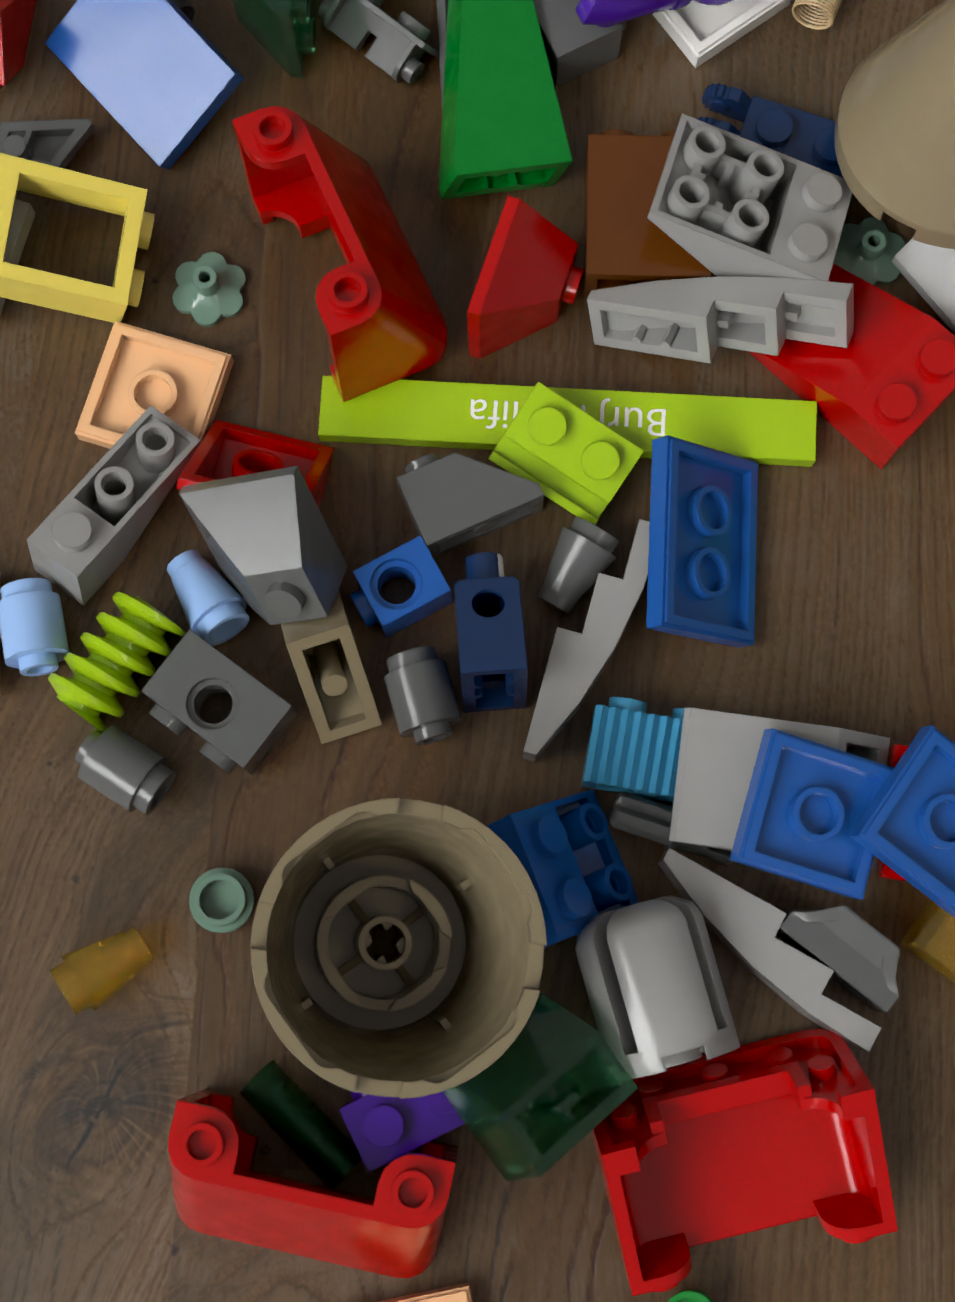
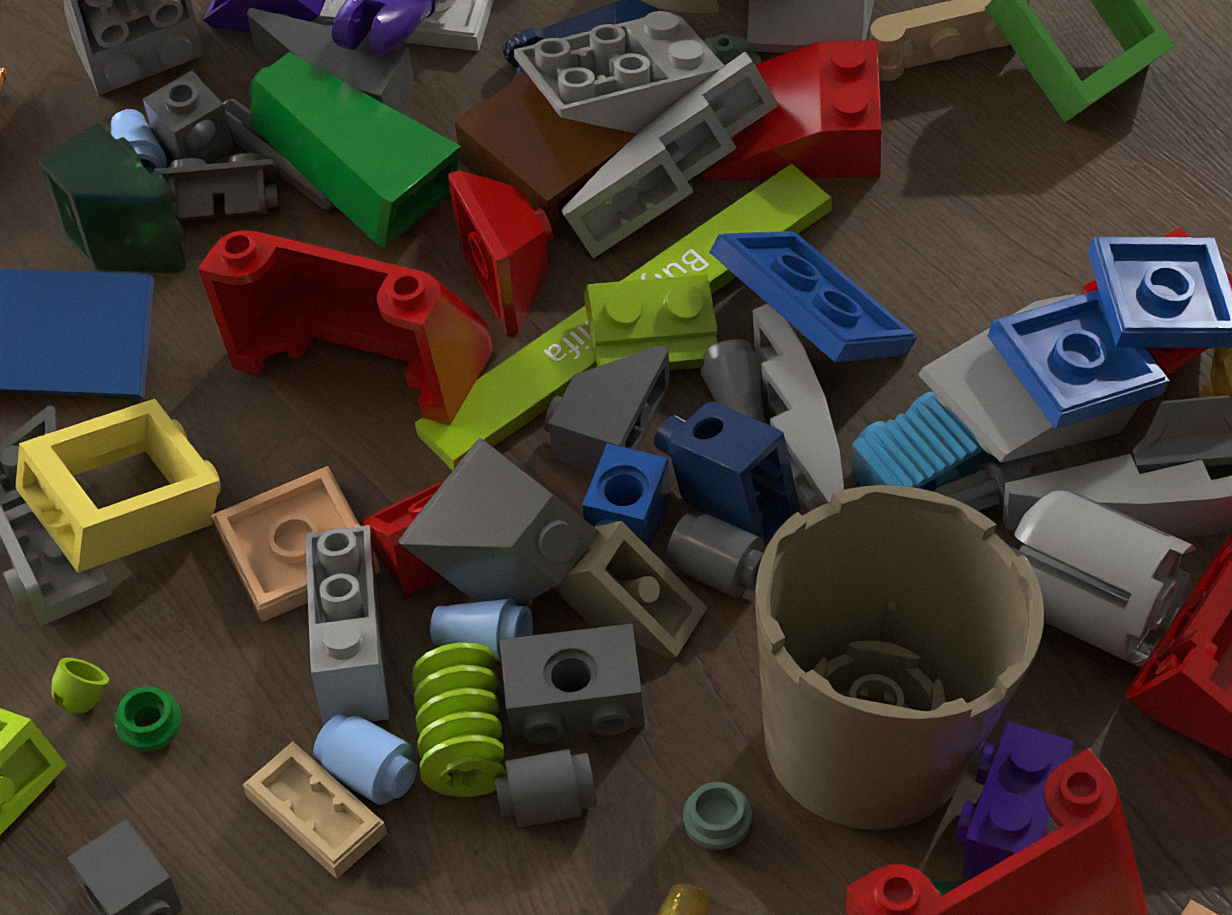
camera: 40 degrees left, 25 degrees down
(211, 299) = (261, 447): sand green plant -> none
(542, 1092) = (1089, 684): clear green slope -> none

